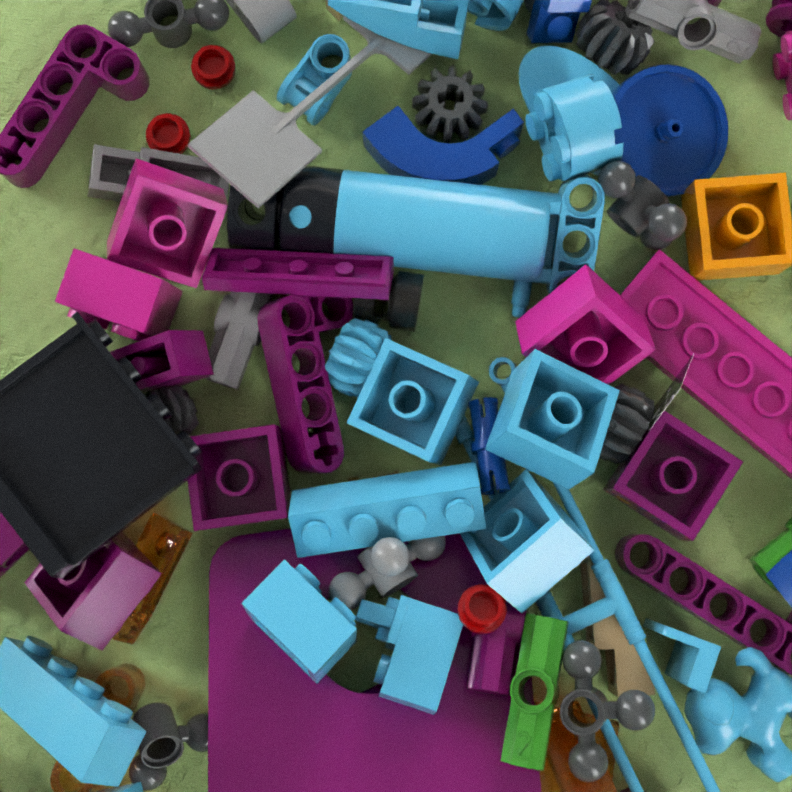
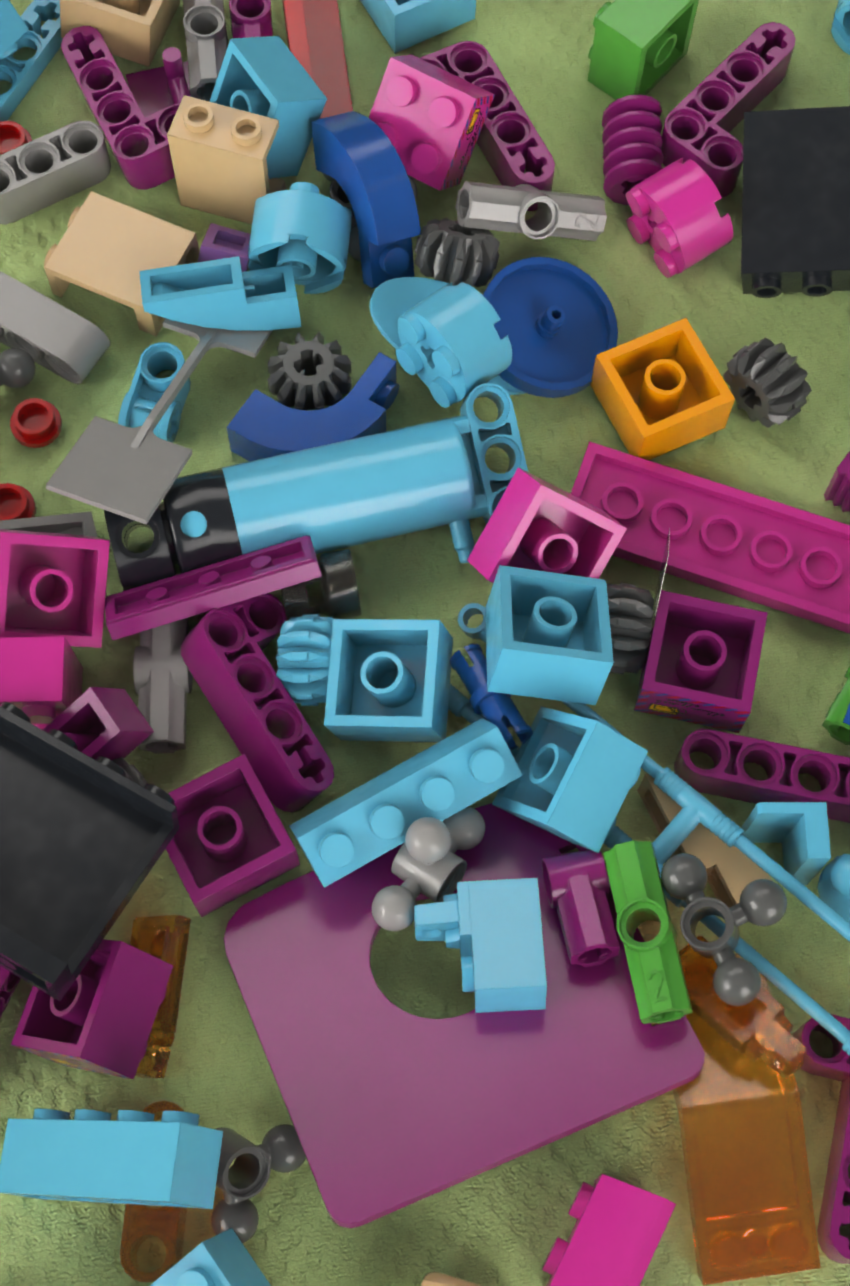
camera: 25 degrees left, 15 degrees down
(301, 620) = (355, 948): medium azure brick -> none
(481, 609) = (552, 860): red plate -> none
(641, 206) = (554, 401): dark grey piece -> none

